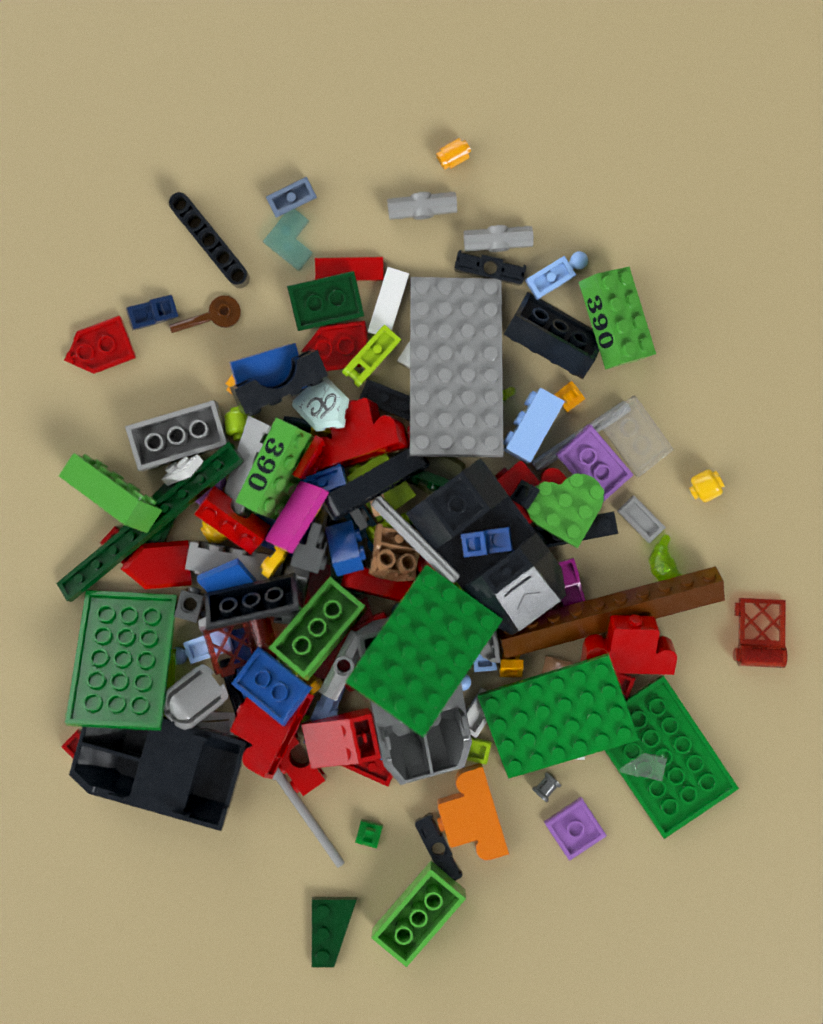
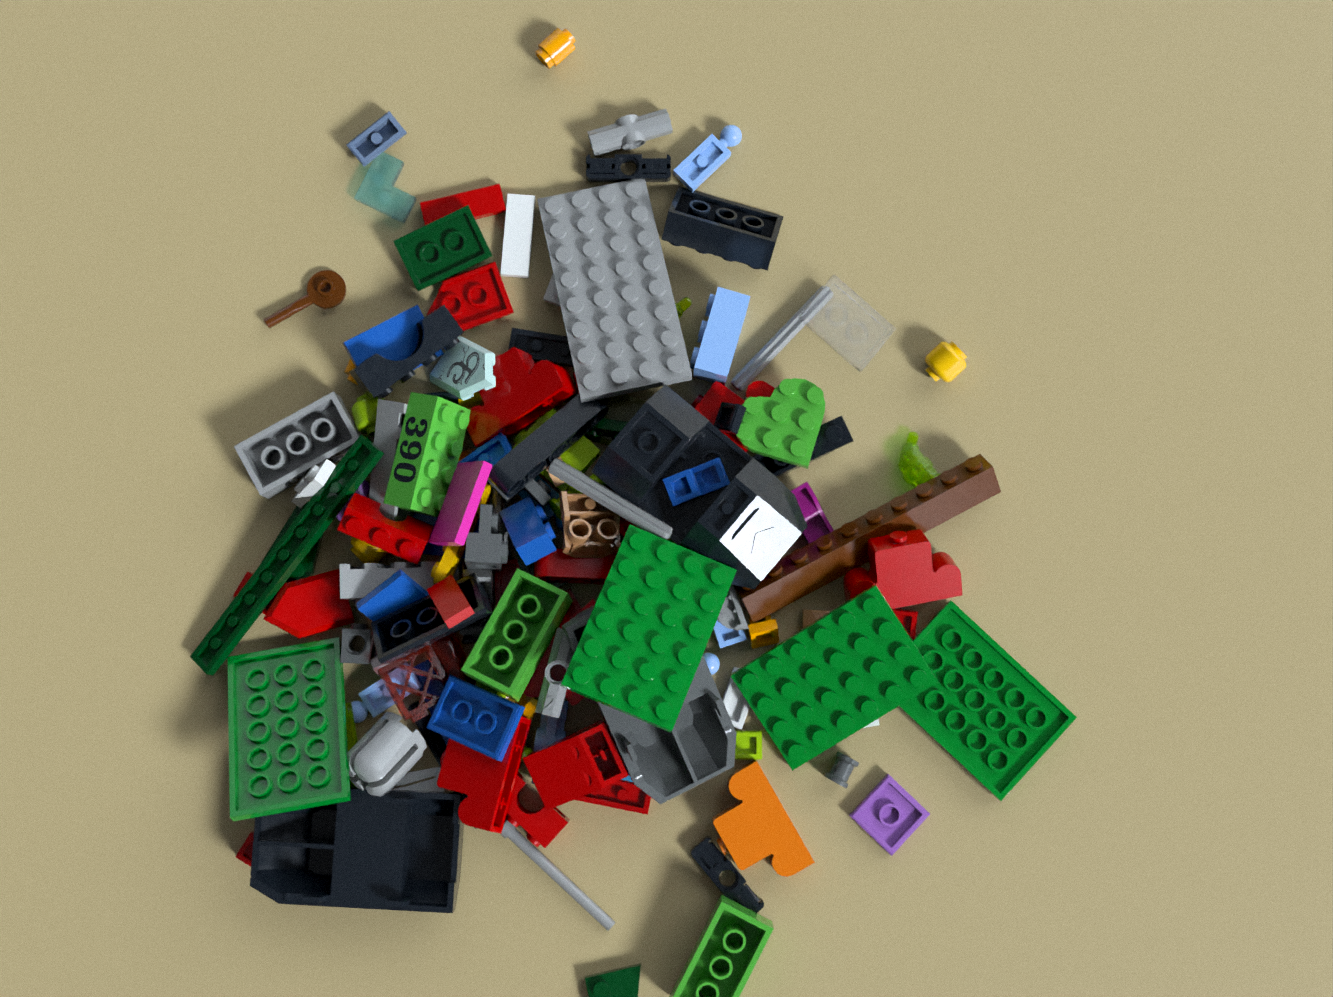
camera: 20 degrees left, 5 degrees down
(101, 346) = (188, 362): red tile -> none
(111, 492) = (232, 527): bright green brick -> none
(152, 312) = (240, 310): dark blue slope -> none
(205, 230) = (282, 201): black beam -> none
(272, 593) = (450, 601): none -> red tile
(311, 460) = (465, 433): red tile -> none
(369, 833) = (637, 879): green tile -> none
(372, 355) = (511, 298): lime plate -> none
(422, 205) = (532, 114): light grey piece -> none
(570, 395) = (760, 295): light orange tile -> none
(592, 456) = (803, 357): medium lavender tile -> none
(617, 317) = (790, 189): bright green brick -> none
(641, 519) = (877, 420): light grey tile -> none
(647, 766) = (957, 715): clear slope -> none
(761, 652) = (1057, 545): clear red piece -> none

